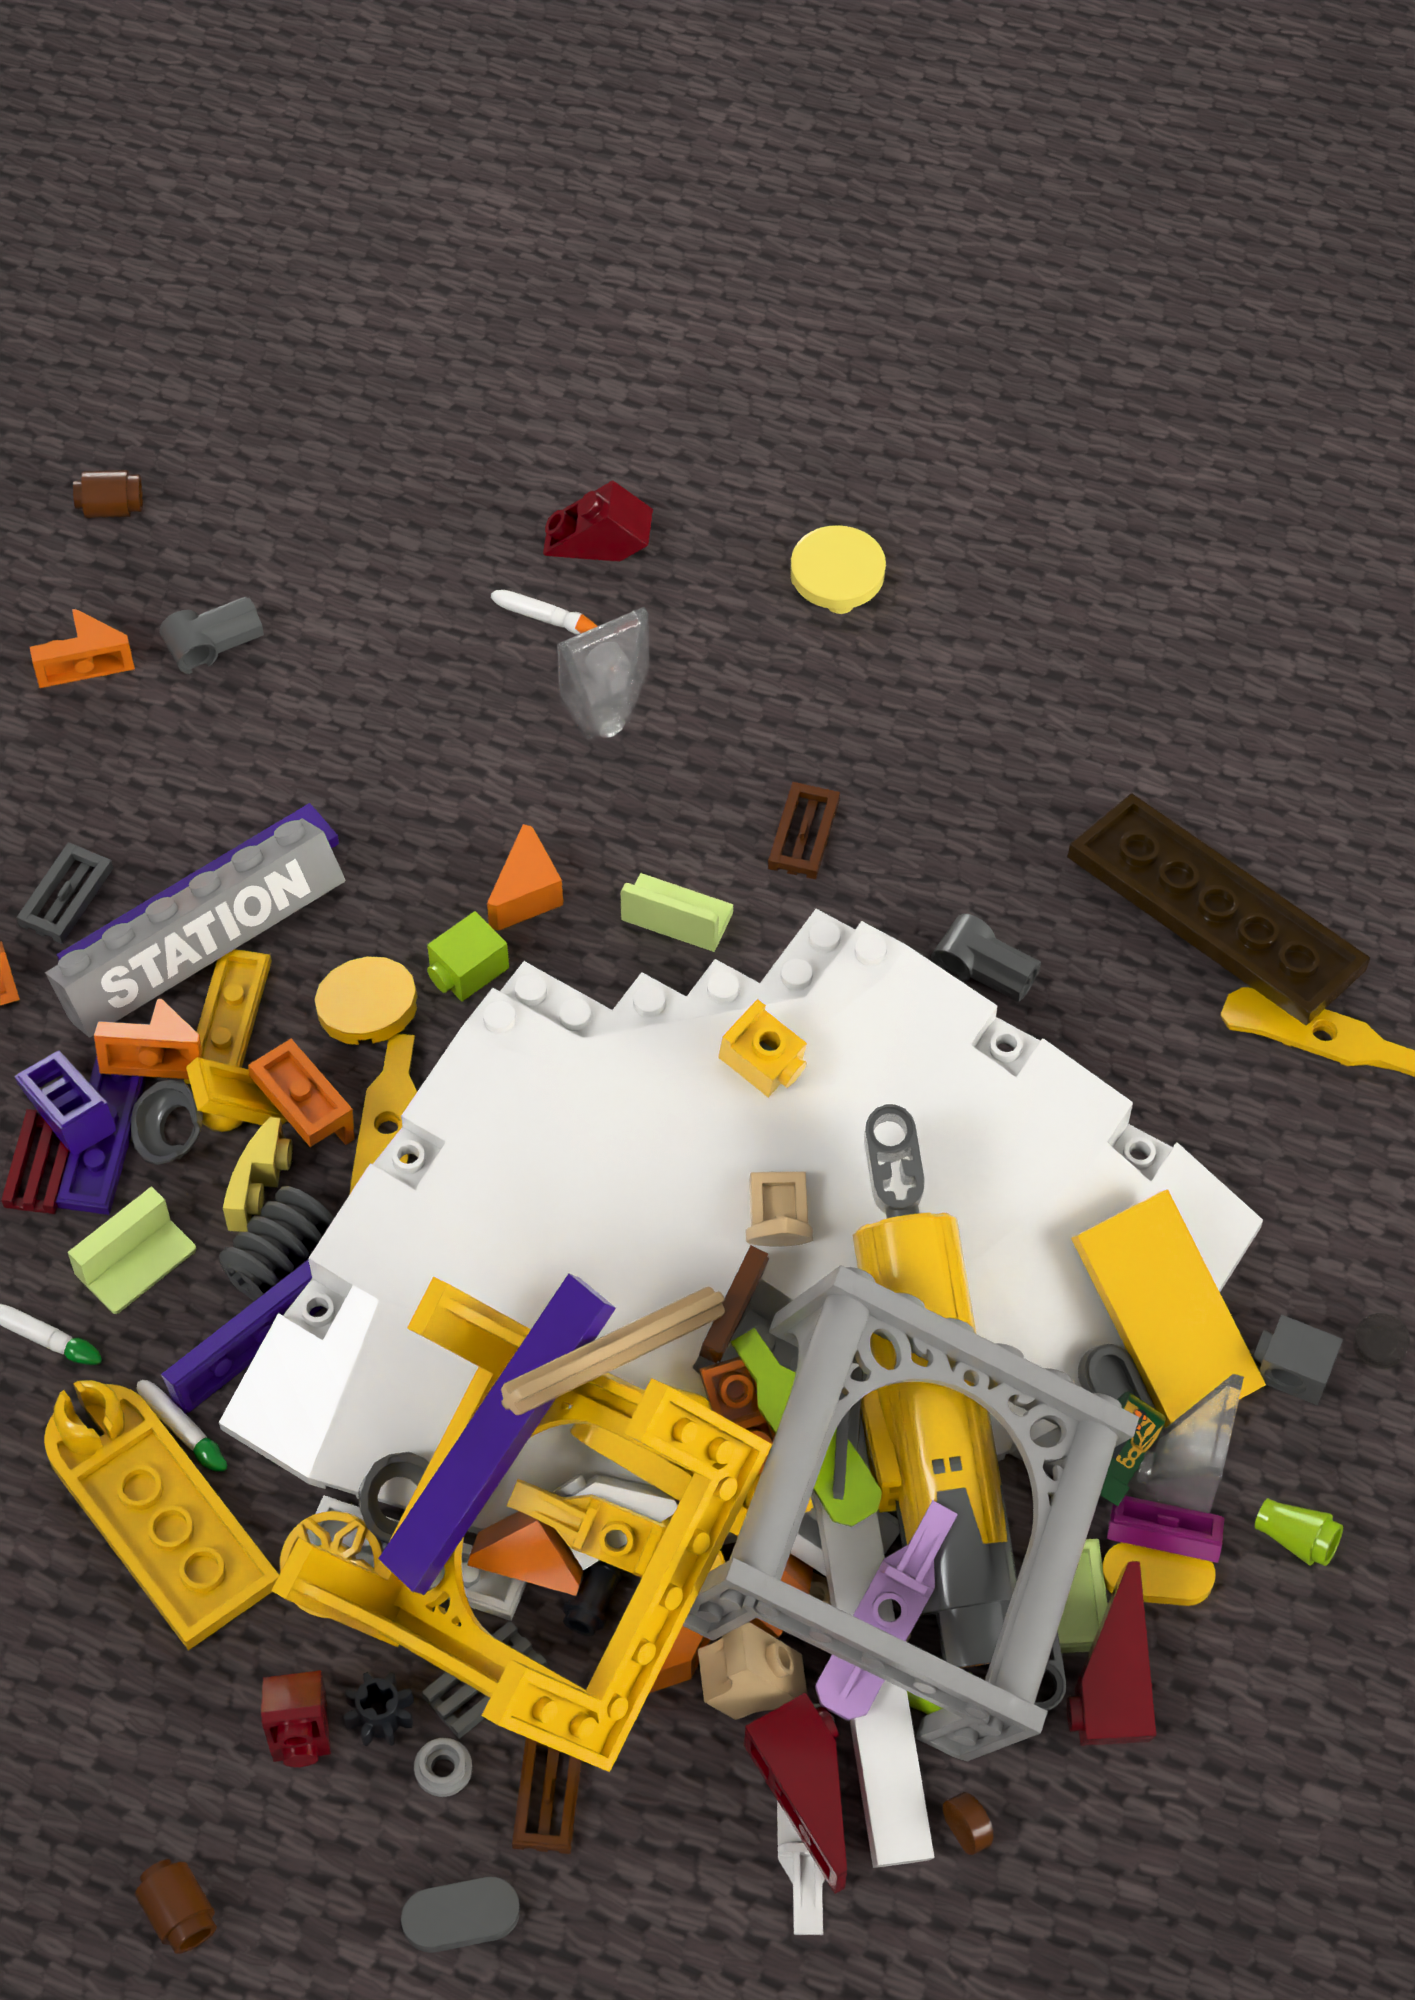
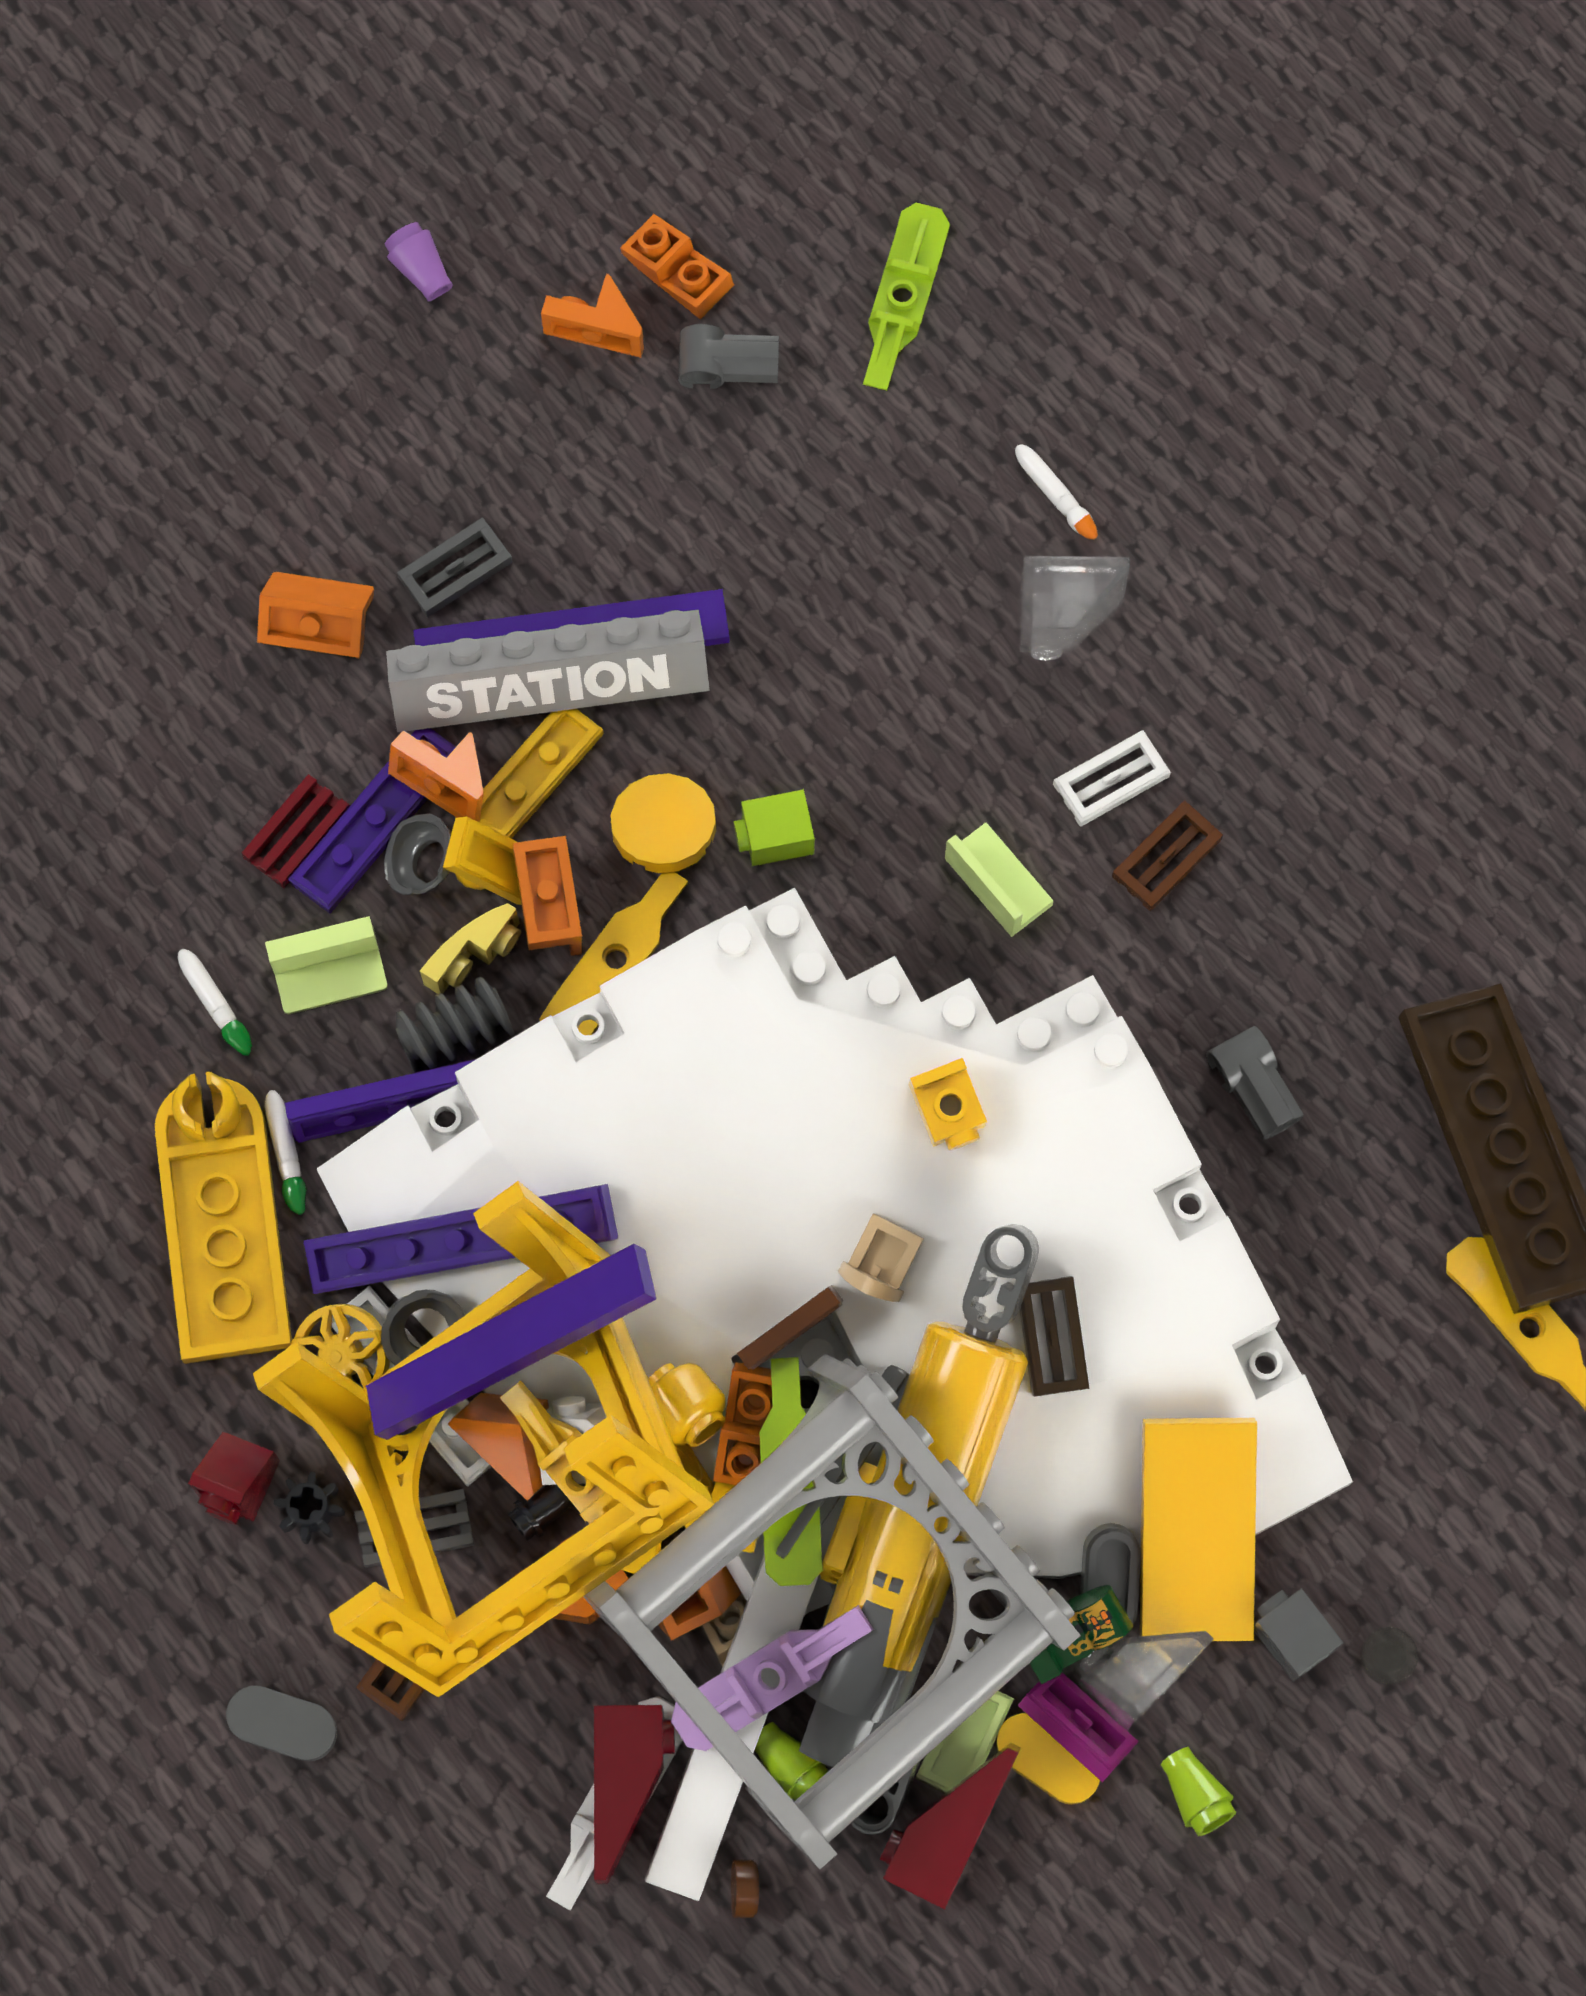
camera: 30 degrees right, 15 degrees up
(69, 1104) = (347, 818): dark purple slope -> none
(108, 493) = (712, 153): reddish brown brick -> none
(116, 587) = (676, 267): none -> orange slope
(176, 1905) = (54, 1586): reddish brown brick -> none
(323, 504) = (910, 266): none -> lime piece
(370, 1416) = (438, 1243): none -> dark purple tile
(443, 1750) = (324, 1574): light grey plate -> none
(526, 883) = (870, 779): orange slope -> none
(600, 526) = (1158, 427): dark red slope -> none
(612, 1351) = (638, 1332): tan axle -> none
(704, 824) = (1075, 800): none -> white tile
(750, 1672) = (617, 1666): tan brick -> none
(838, 568) = (1366, 588): light yellow tile -> none
(976, 1193) = (1058, 1383): none -> dark brown tile

